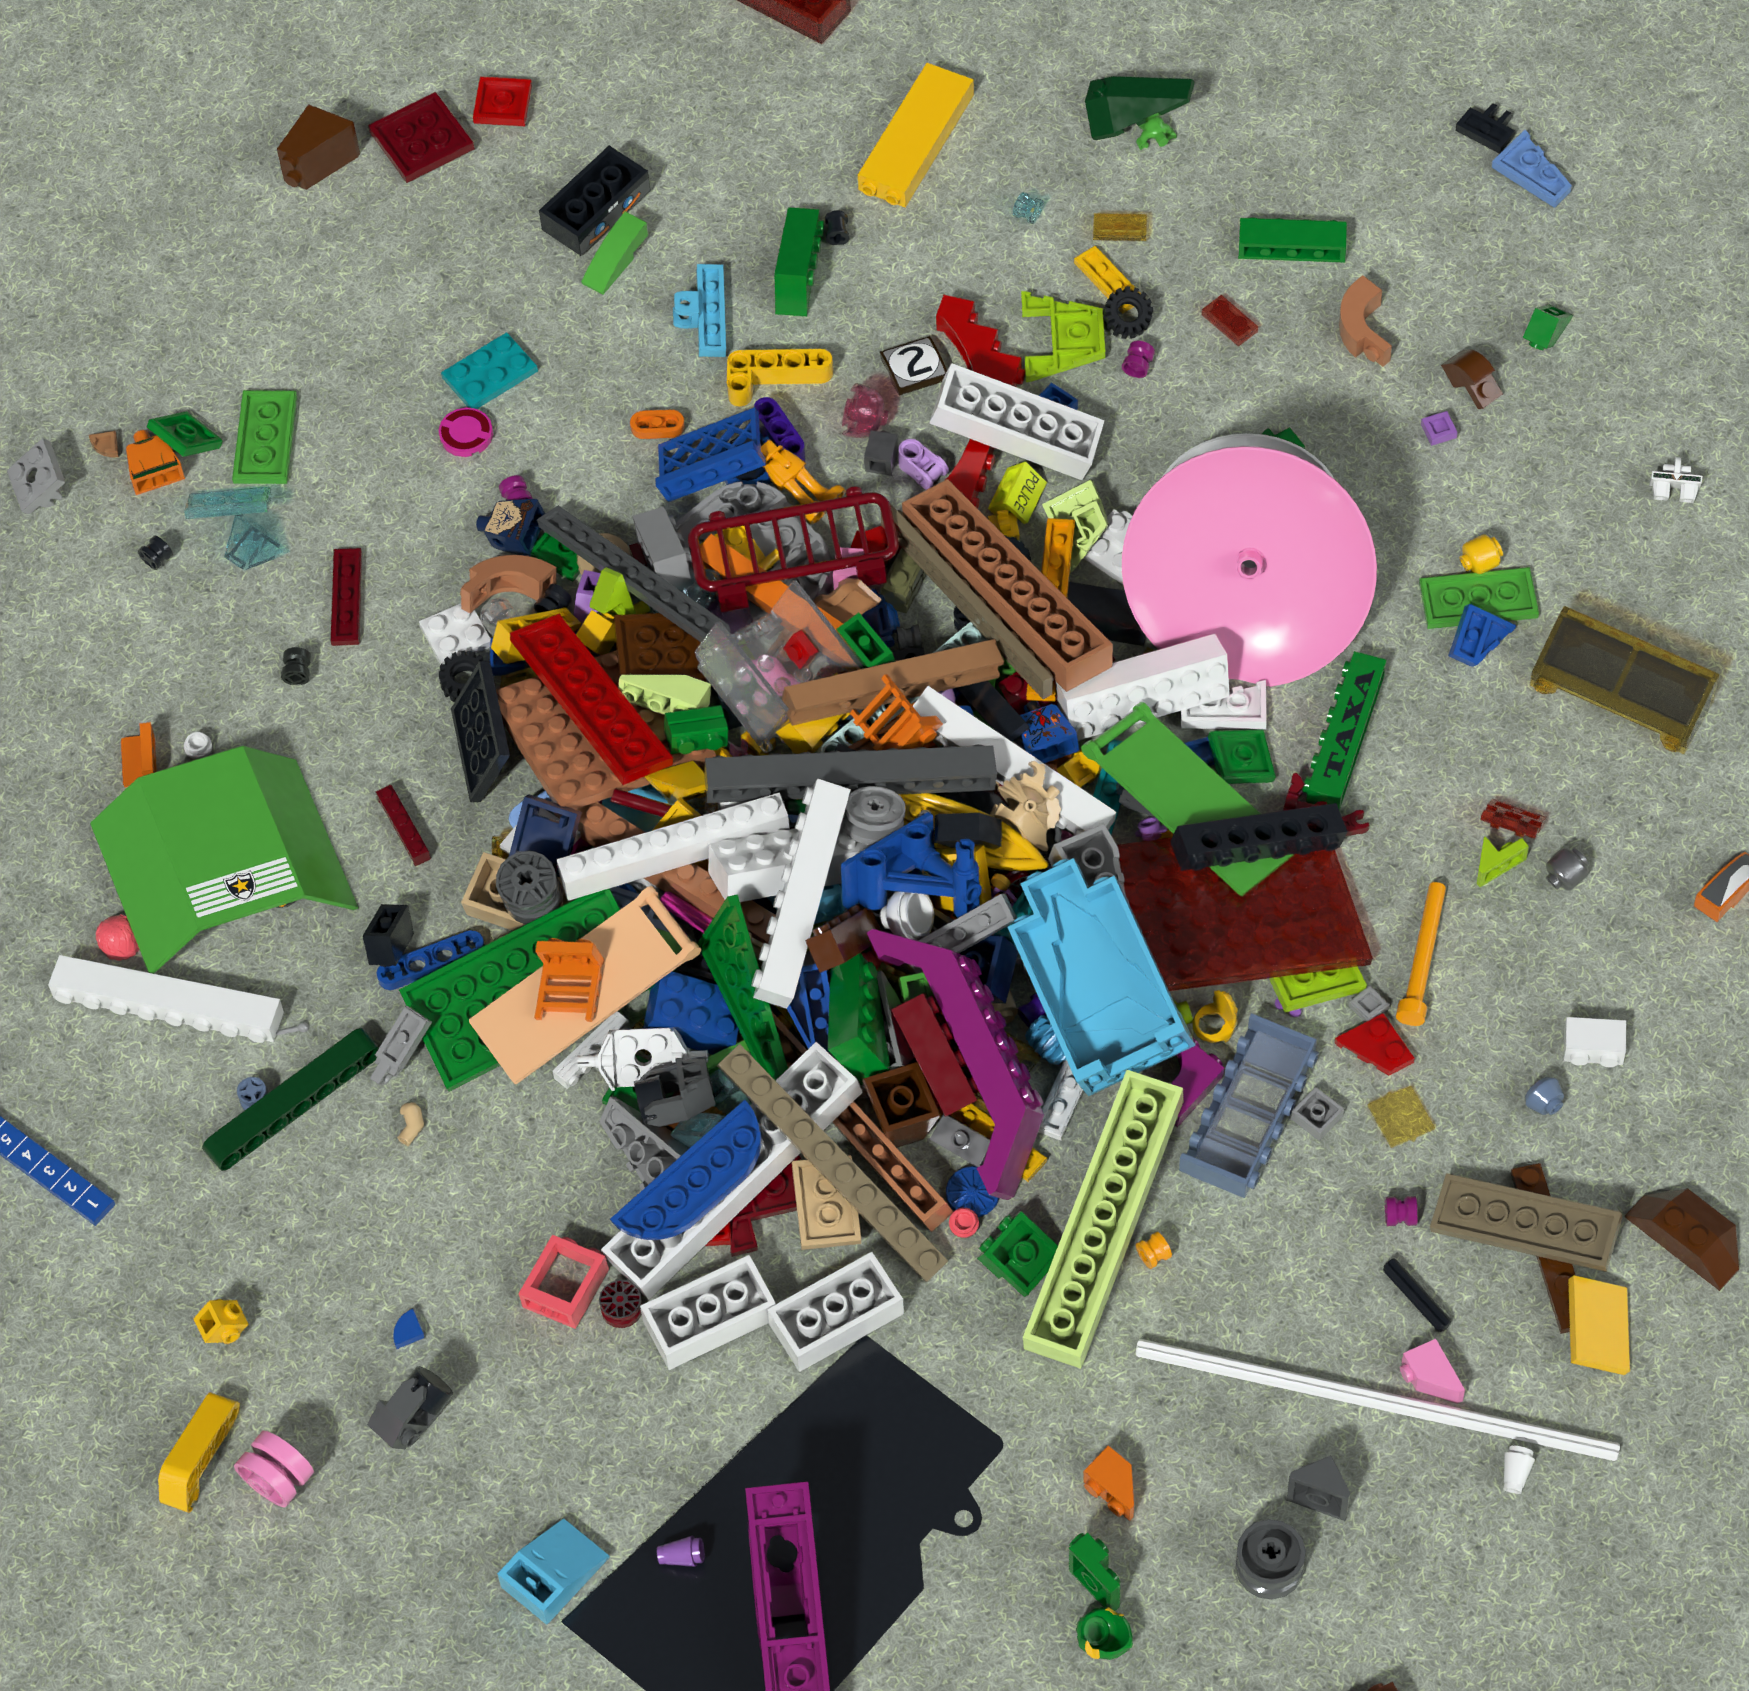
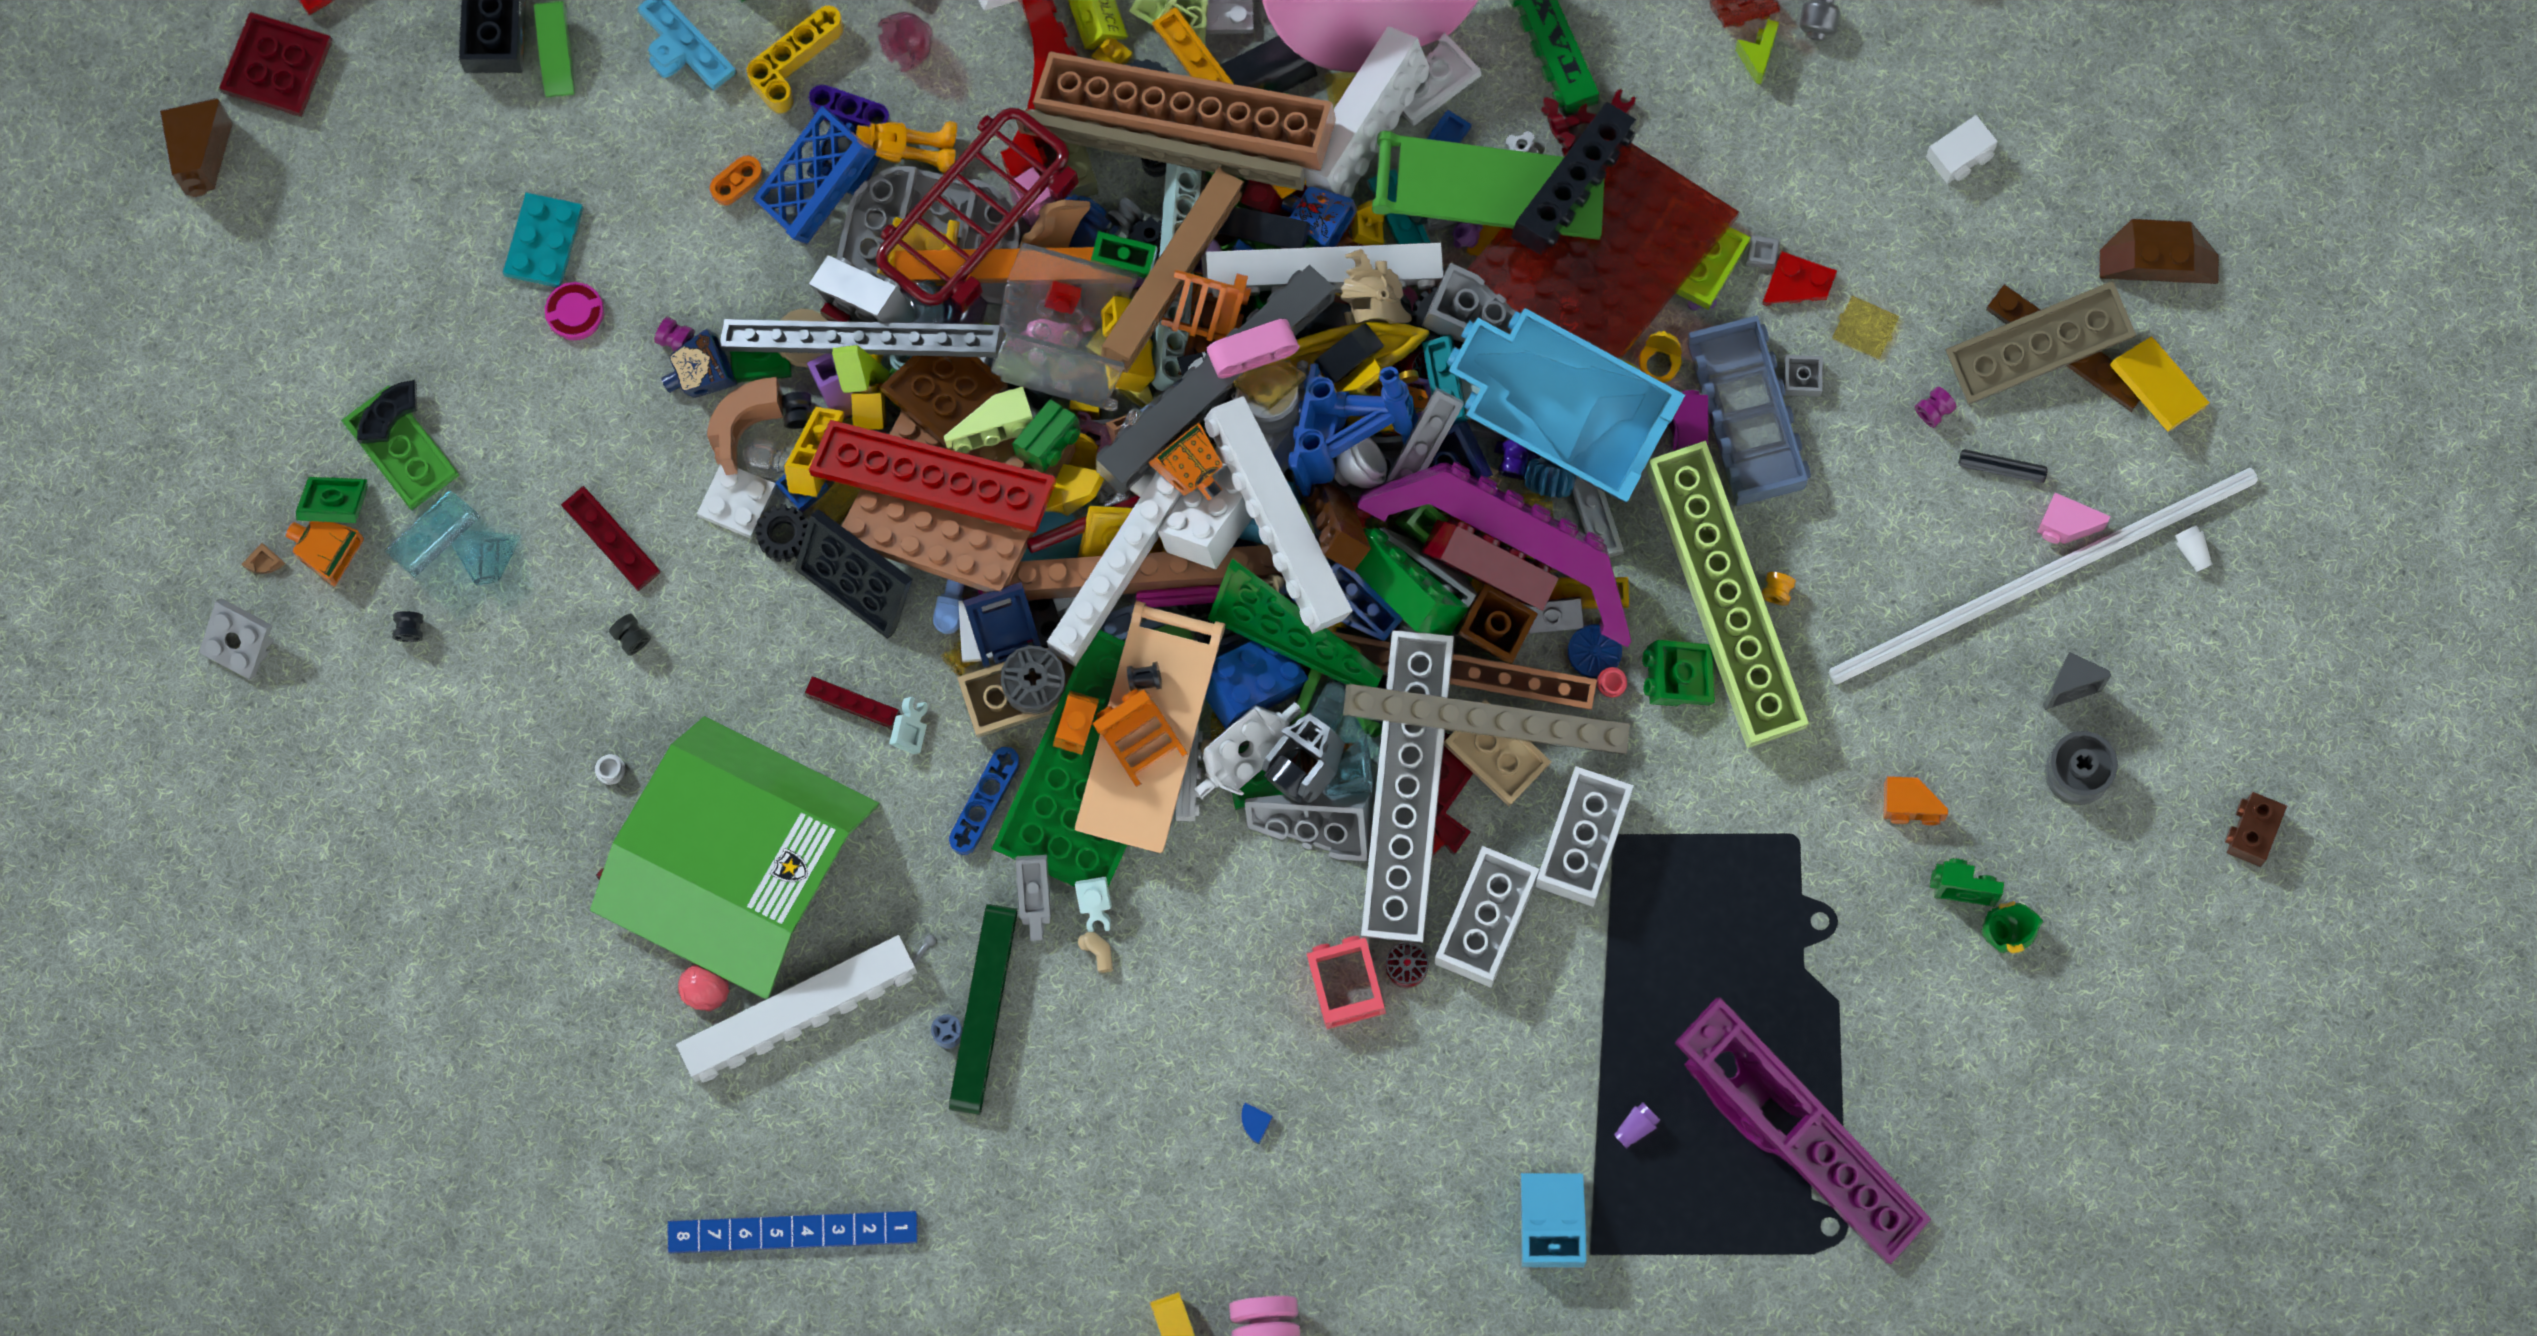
camera: 40 degrees left, 15 degrees up
(138, 754) = (569, 819): orange panel -> none
(221, 1321) = (1105, 1239): yellow brick -> none
(276, 404) = (385, 411): none -> black tile
(388, 935) = (937, 808): black brick -> none
(410, 1409) = (1323, 1201): dark grey piece -> none
(422, 870) = (907, 728): none -> light aqua plate
(440, 1083) = (1094, 899): none -> light aqua plate
(522, 936) = (1075, 722): none -> orange torso
(608, 942) = (1144, 677): none -> black bush
(695, 1179) = (1395, 820): blue plate -> none
(768, 808) = (1190, 463): none -> orange torso
(881, 452) = (952, 64): flat silver brick -> none
(885, 798) = (1270, 382): none -> clear yellow piece
(891, 765) = (1252, 348): none -> bright pink beam
(924, 467) = (997, 50): lavender piece -> none
(1242, 756) = (1484, 114): green tile -> none
(1258, 796) = (1525, 139): none -> white plate
(1412, 1008) = (1801, 230): light orange piece -> none
(1545, 1096) = (1964, 225): sand blue cone -> none

